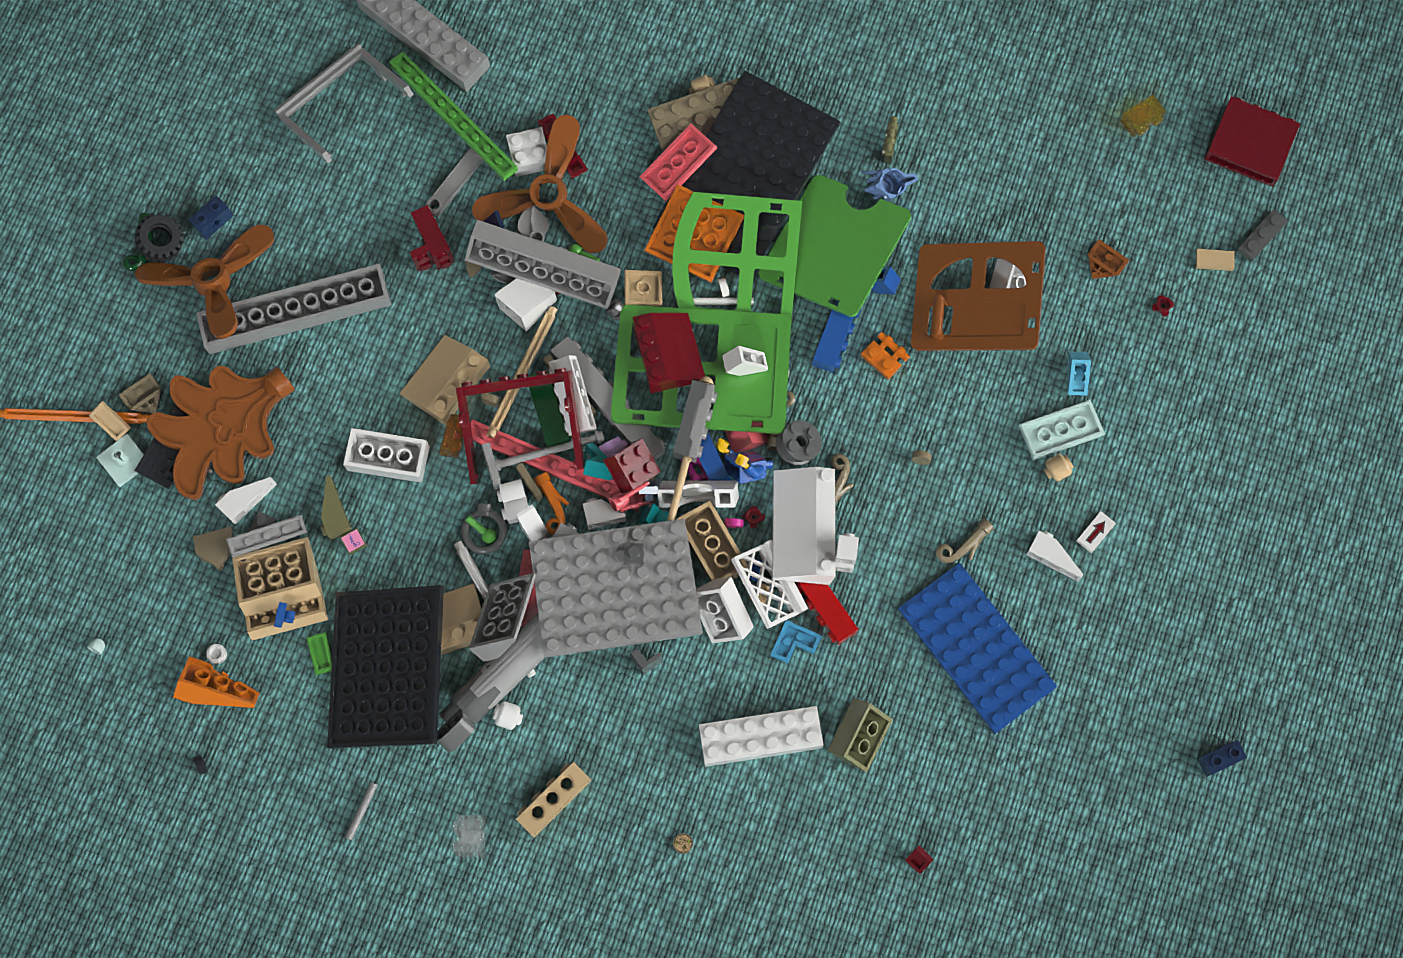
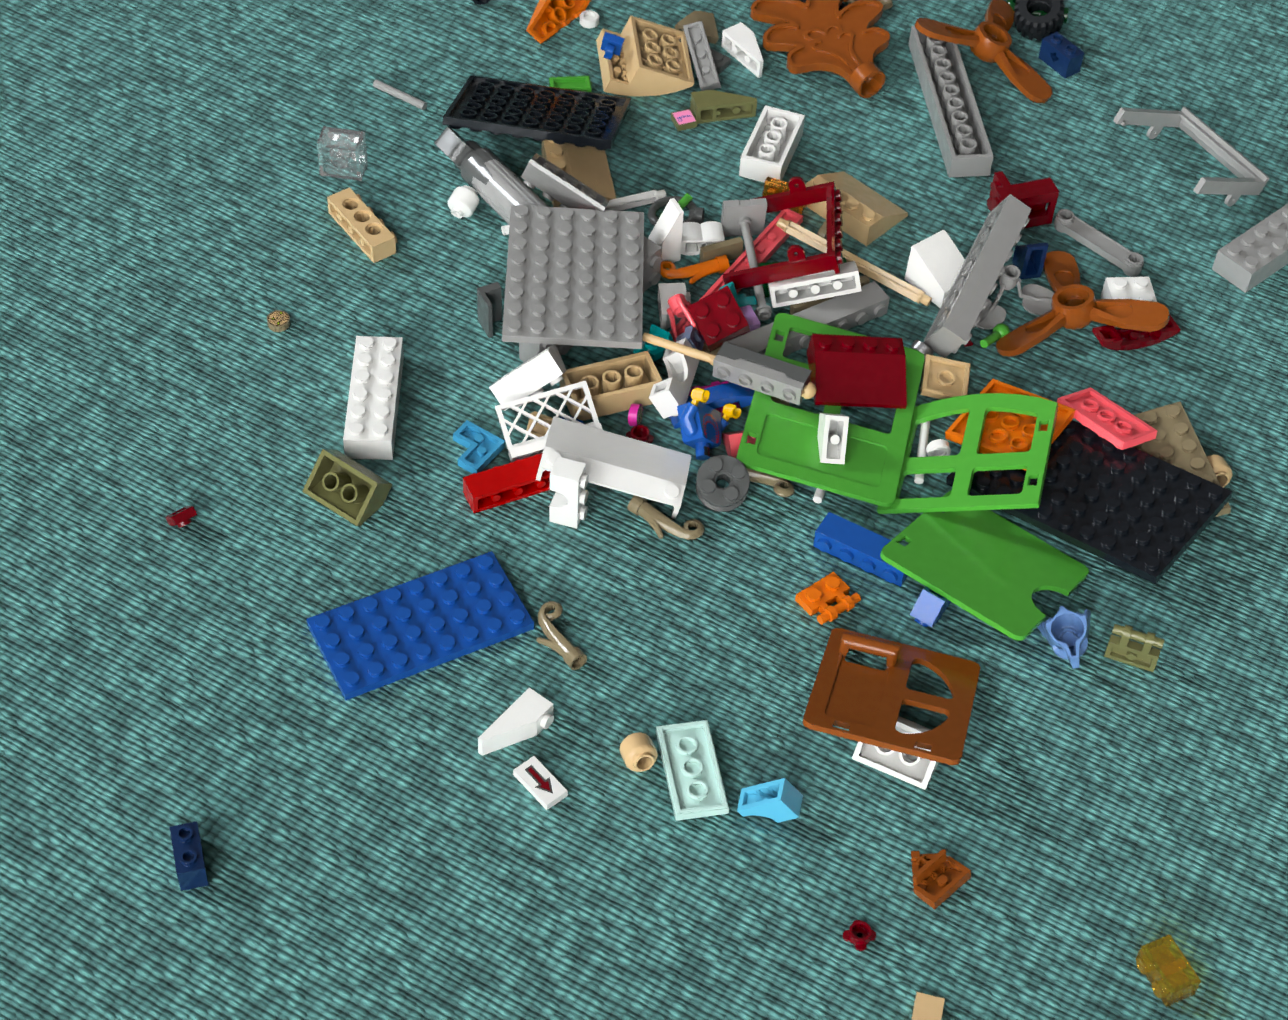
camera: 95 degrees right, 25 degrees down
(453, 116) = (1174, 240): bright green plate -> none
(634, 553) = (607, 286): dark grey plate -> none
(921, 457) = (682, 607): dark tan tile -> none

